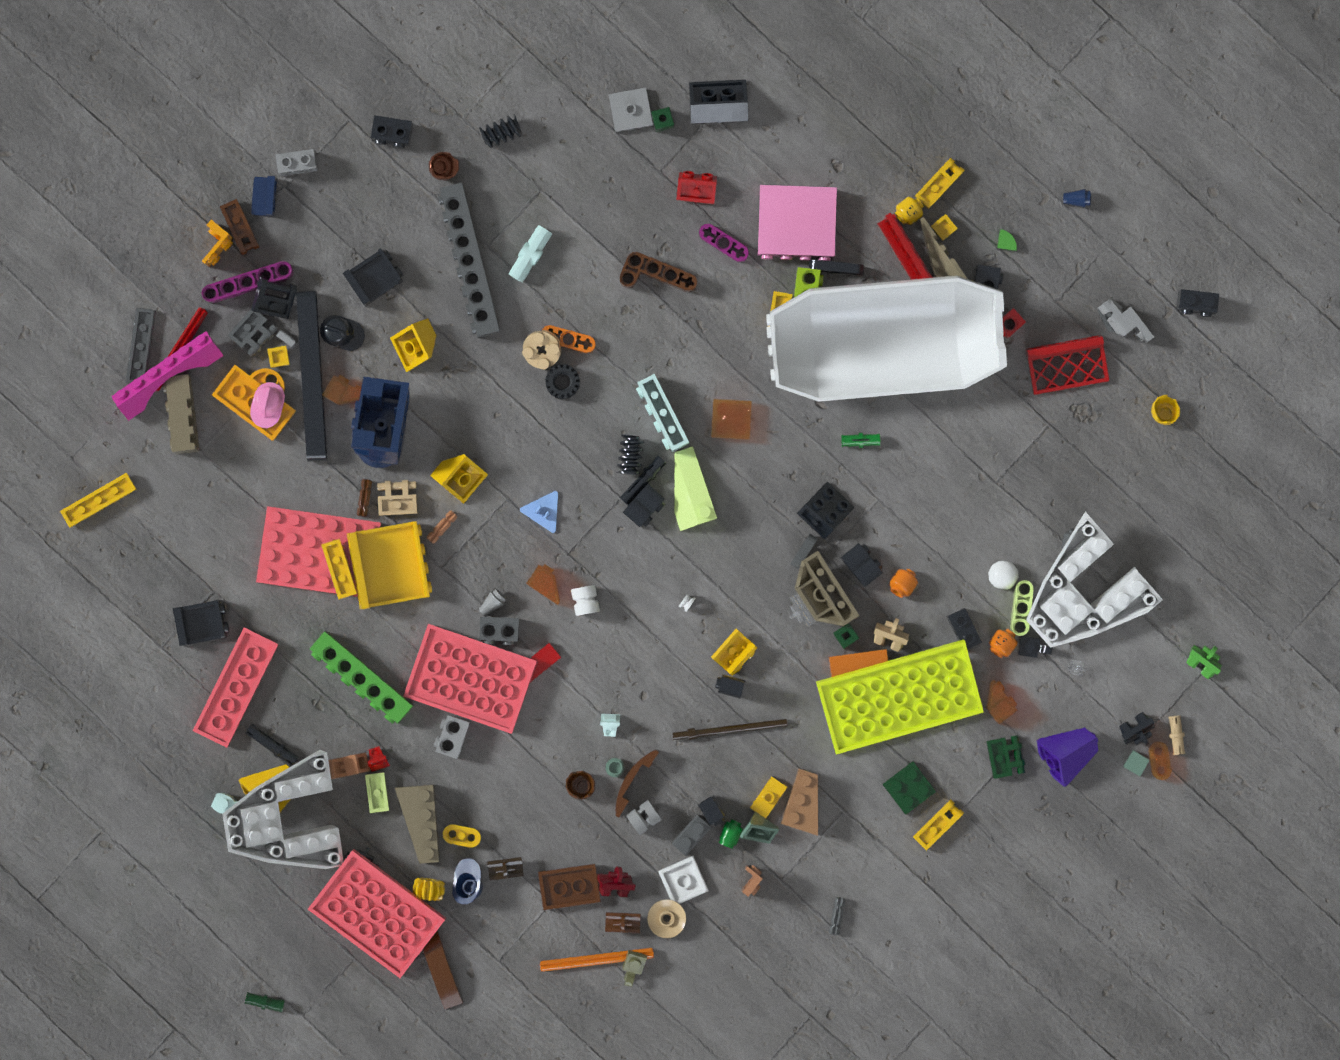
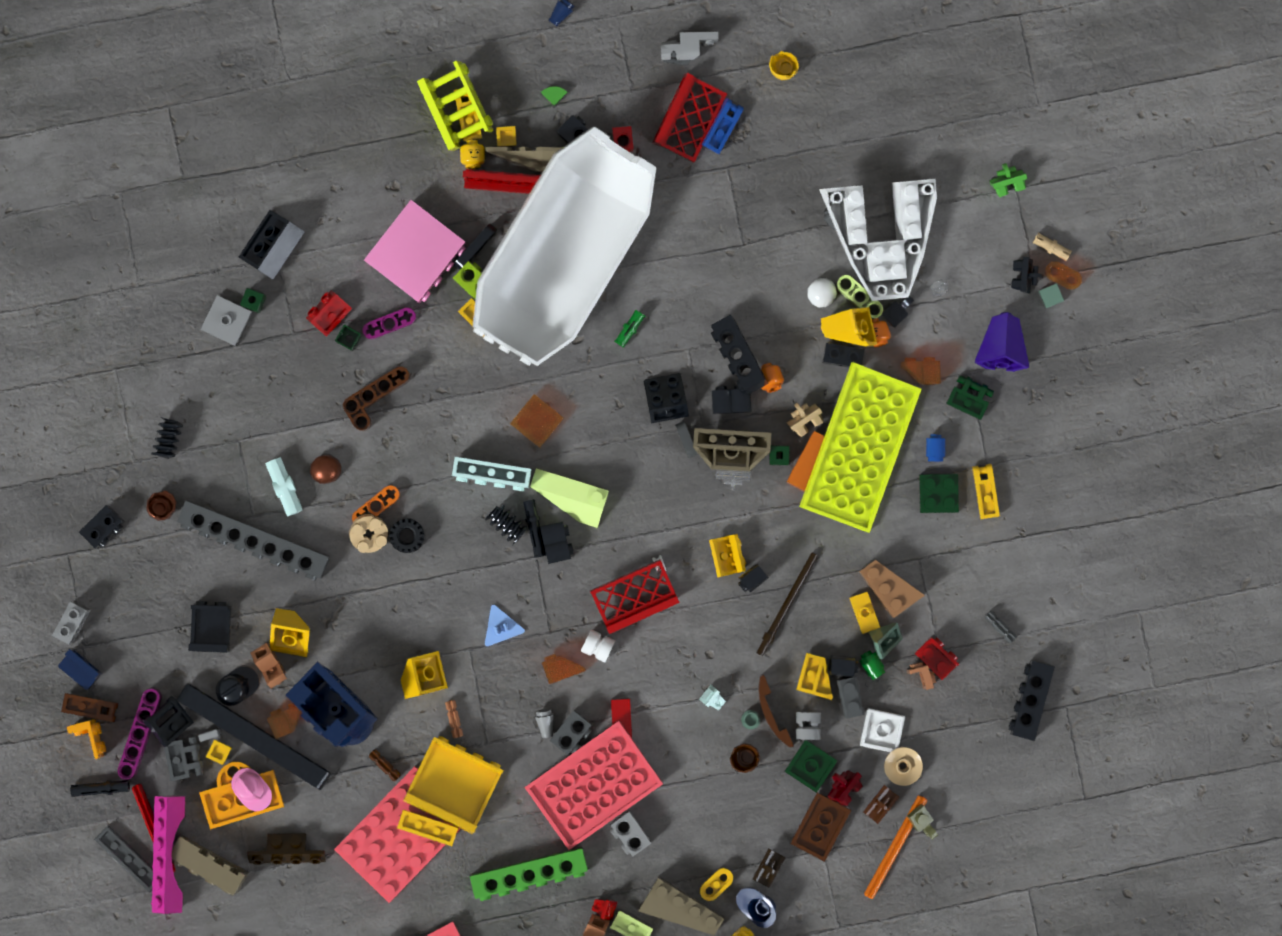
camera: 55 degrees left, 0 degrees up
(183, 285) = (108, 787): none -> black pin
(239, 467) = (286, 849): none -> dark brown bracket
(377, 346) = (269, 665): none -> nougat brick
(397, 503) = (408, 743): tan plate -> none
(568, 277) = (325, 469): none -> copper hair
(612, 843) = (810, 766): none -> dark green plate
(641, 616) = (641, 611): none -> red fence
(687, 794) = (814, 677): none -> yellow wing
(692, 212) = (340, 339): none -> dark green piece
(770, 1000) = (1040, 693): none -> black brick
(774, 882) = (936, 658): none -> red bracket
(894, 571) = (729, 327): none -> black brick
(928, 152) = (436, 106): none -> neon yellow fence
(943, 758) = (935, 448): none -> blue brick
(992, 618) = (850, 326): none -> yellow slope
(1079, 396) = (722, 126): none -> blue plate

